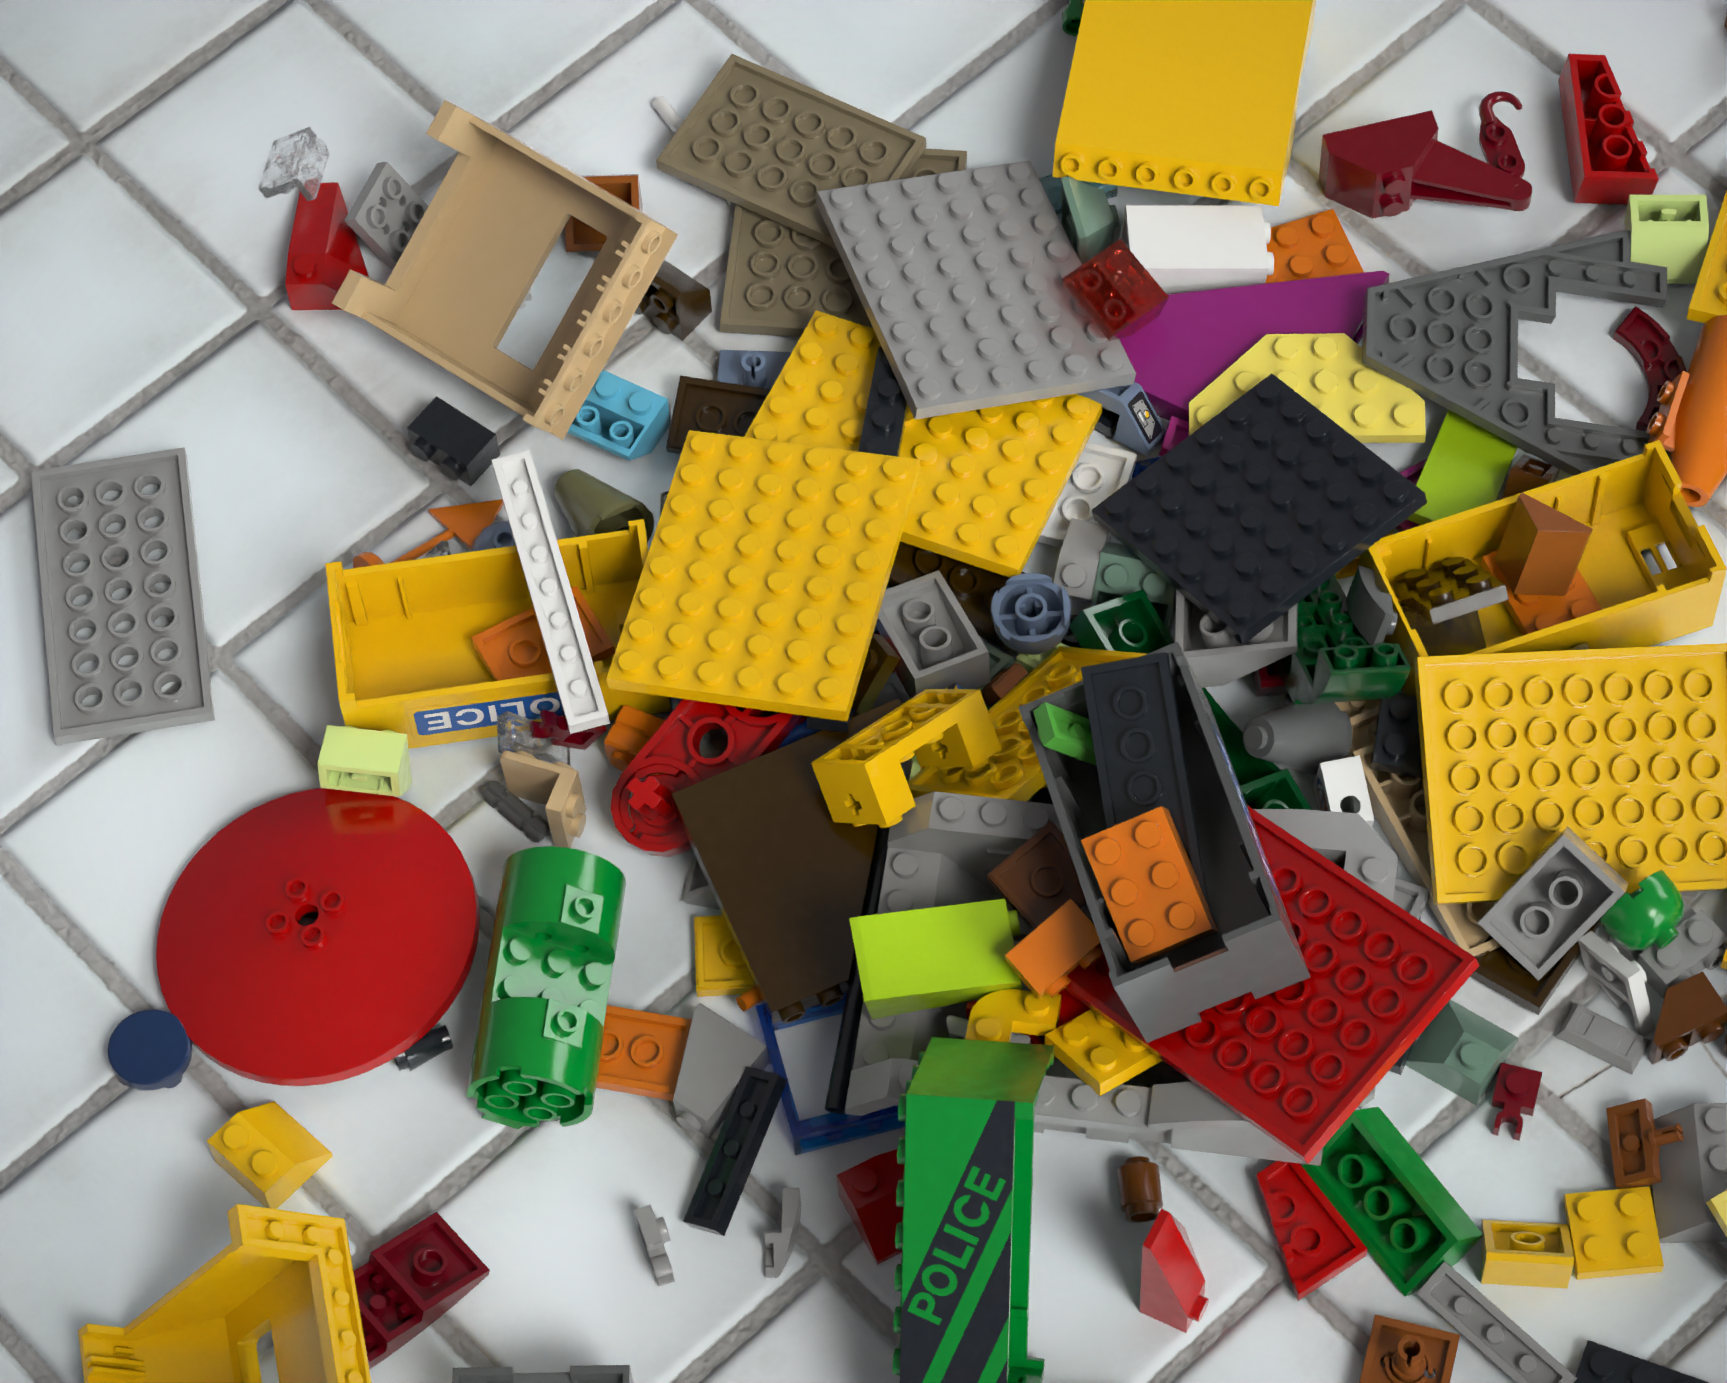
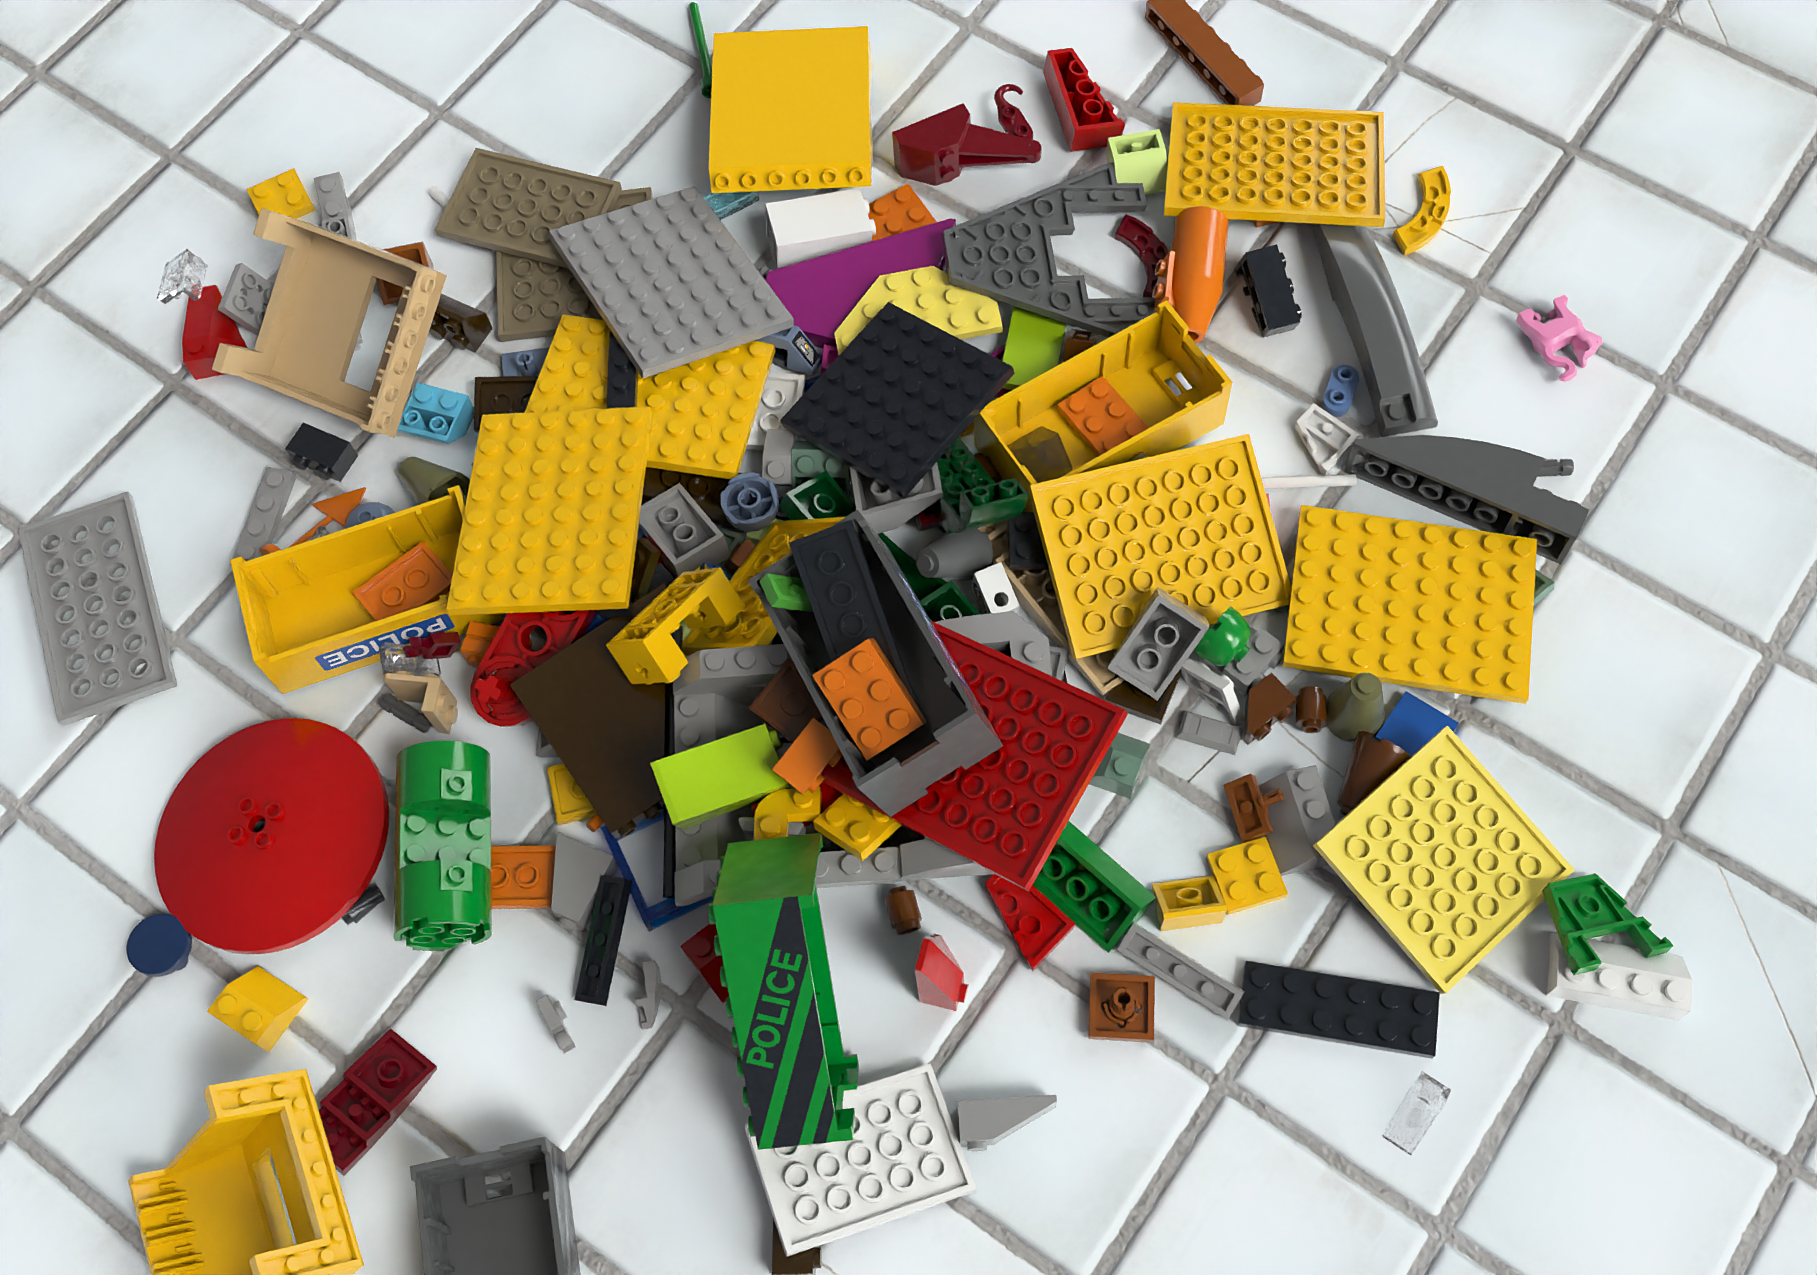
camera: 10 degrees left, 5 degrees up
(362, 512) = (265, 512): none -> light grey plate
(364, 761) = (285, 699): yellowish green slope -> none
(444, 73) = (282, 195): none -> yellow plate
(520, 99) = (334, 205): none -> light grey slope
(550, 592) = (398, 552): white plate -> none
(1087, 218) = (741, 220): sand green slope -> none
(1116, 292) = (769, 264): clear red slope -> none
(1370, 608) = (988, 455): dark grey slope -> none
(1449, 590) = (1041, 432): dark brown plate -> none
(1515, 1094) = (1157, 785): dark red plate -> none
(1541, 549) = (1098, 391): dark orange slope -> none

